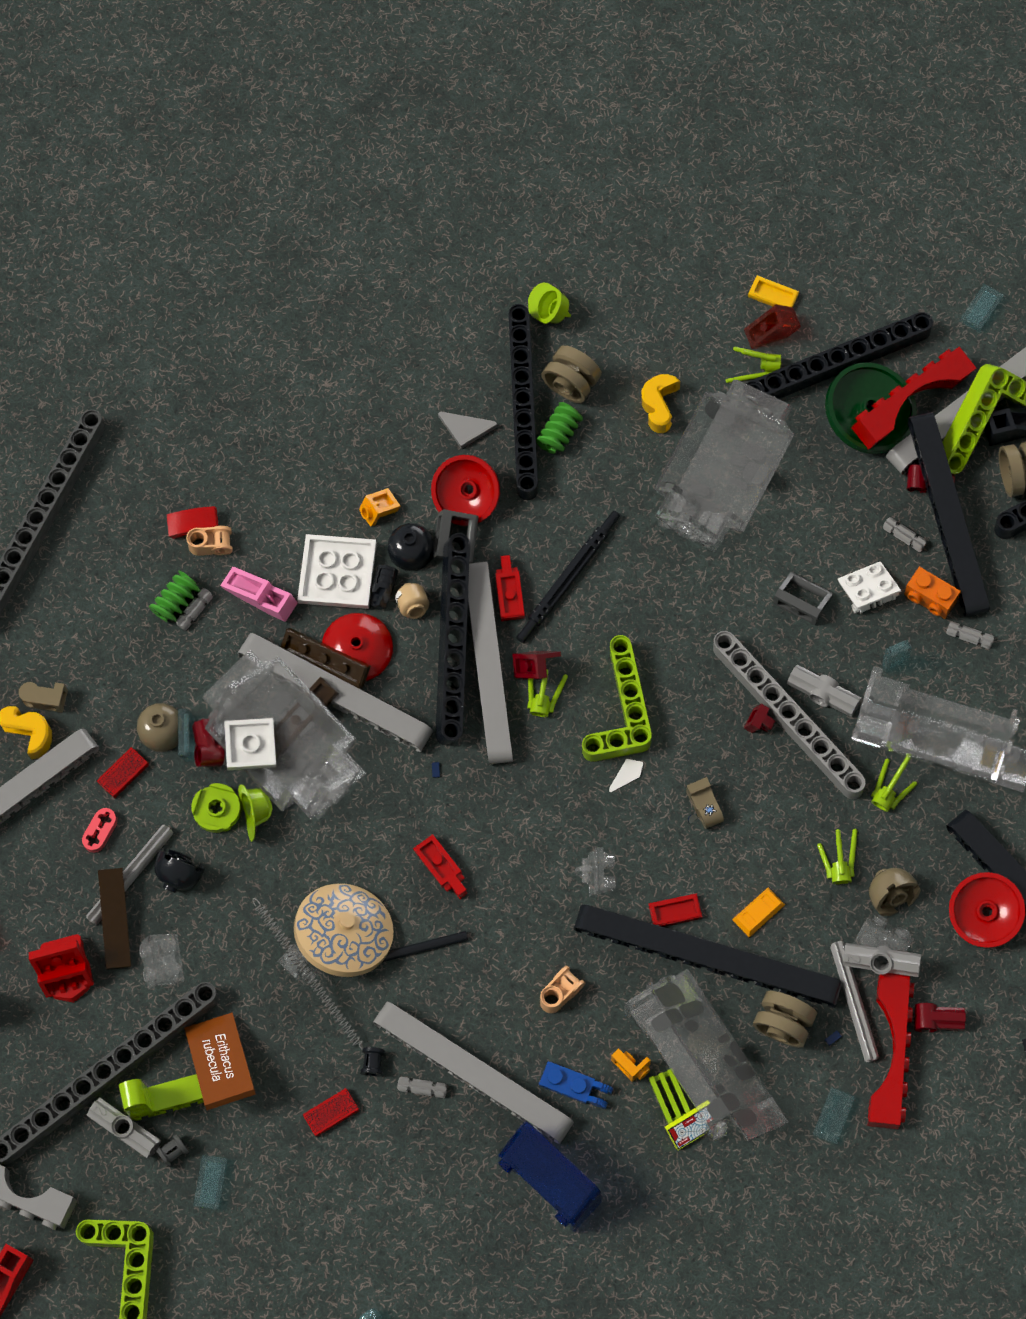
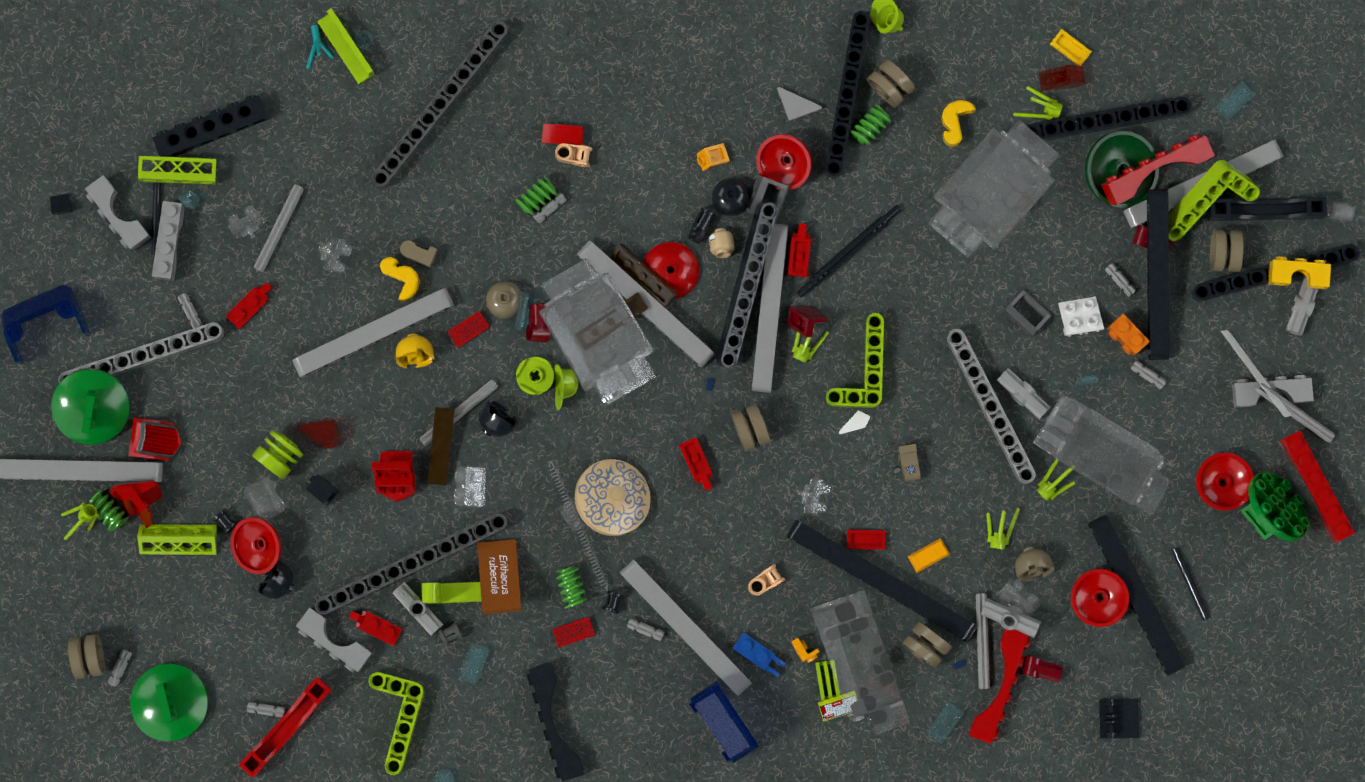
camera: 10 degrees right, 15 degrees up
(58, 812) = (414, 350): none -> yellow cylinder
(75, 1165) = (376, 626): none -> red hinge
(94, 828) = (445, 375): coral beam -> none
(250, 744) = (571, 334): white tile -> none
(259, 593) = (603, 207): bright pink slope -> none
(314, 1055) = (571, 586): none -> bright green piece
(337, 571) = (668, 204): white plate -> none
(357, 1279) = (567, 761): none -> black arch
(426, 946) = (673, 522): black bar -> none
(497, 804) = (750, 427): none -> dark tan wheel
(759, 719) = (966, 405): dark red tile -> none

